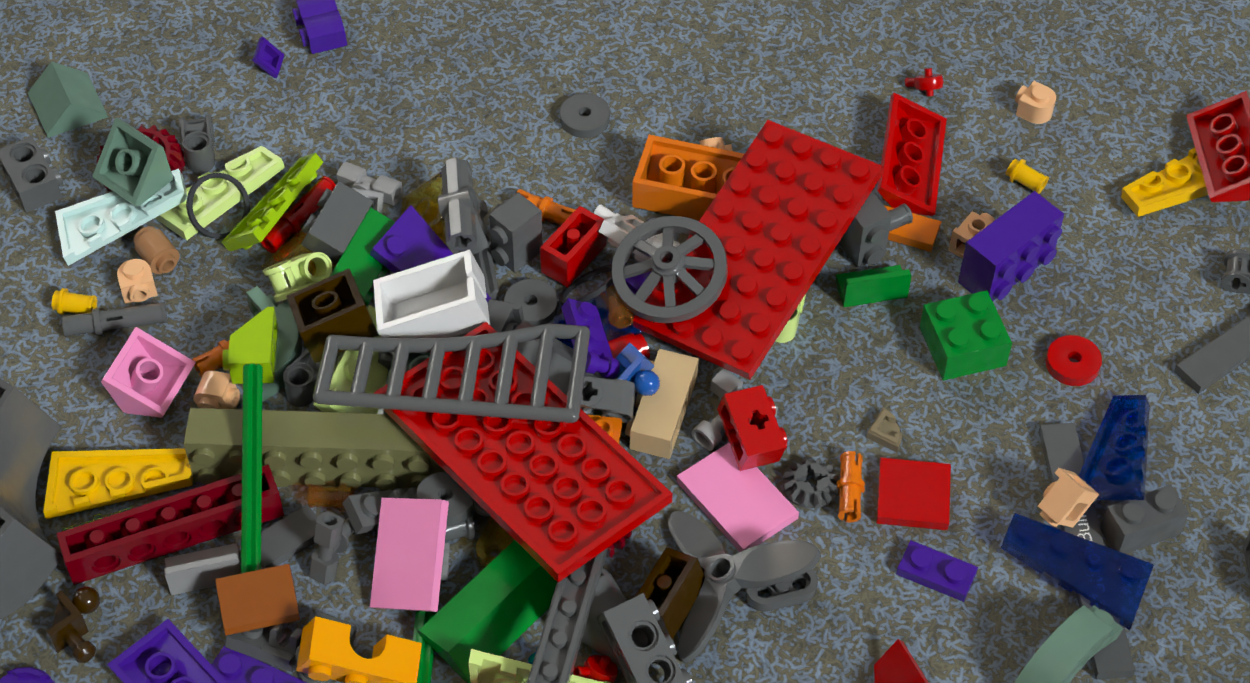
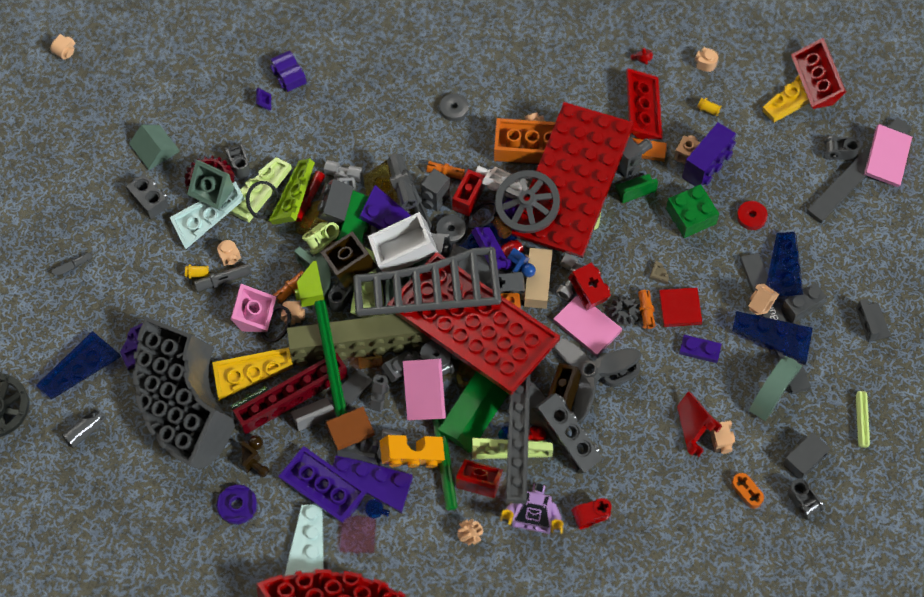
camera: 10 degrees left, 10 degrees up
(156, 250) = (234, 232): medium nougat brick -> none
(202, 400) = (284, 331): none -> black piece

